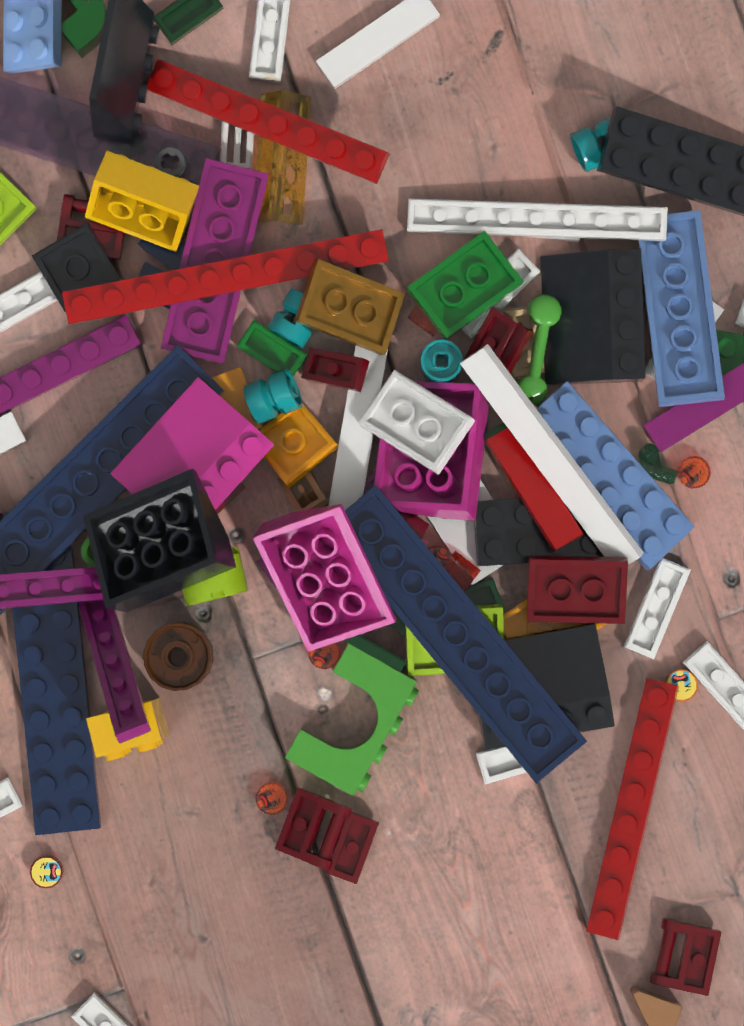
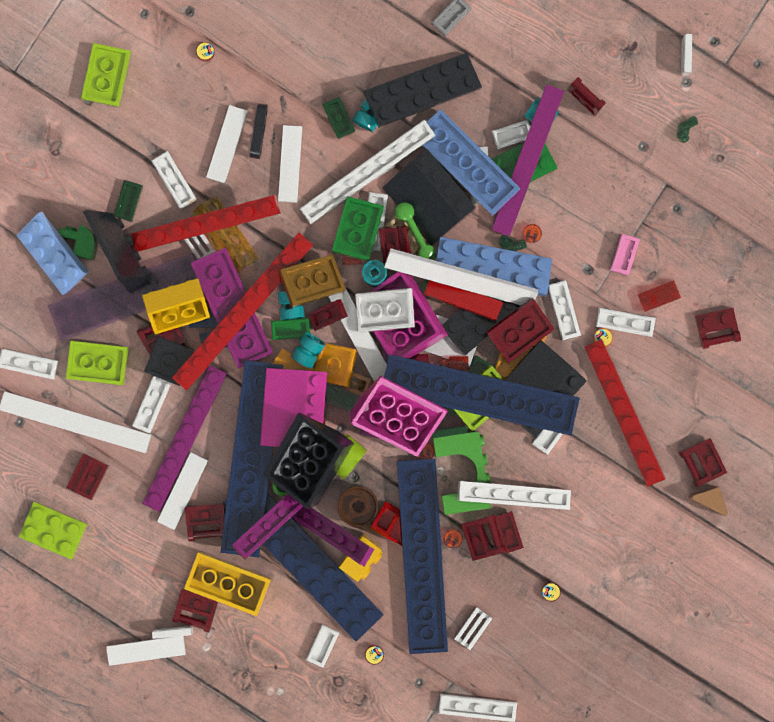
camera: 35 degrees left, 0 degrees up
(173, 152) = (173, 272): dark grey bush -> none
(179, 947) = (480, 631): none -> white tile
(201, 712) = (388, 523): none -> red slope
(212, 790) = (422, 556): none -> dark blue plate
(267, 492) = (340, 397): none -> clear green plate
(347, 971) = (551, 591): none -> tile
(397, 803) = (513, 495): none -> white plate
(434, 53) = (259, 130): none -> black beam
(441, 129) = (290, 164): none -> white tile
(554, 118) = (338, 118): none -> dark green plate

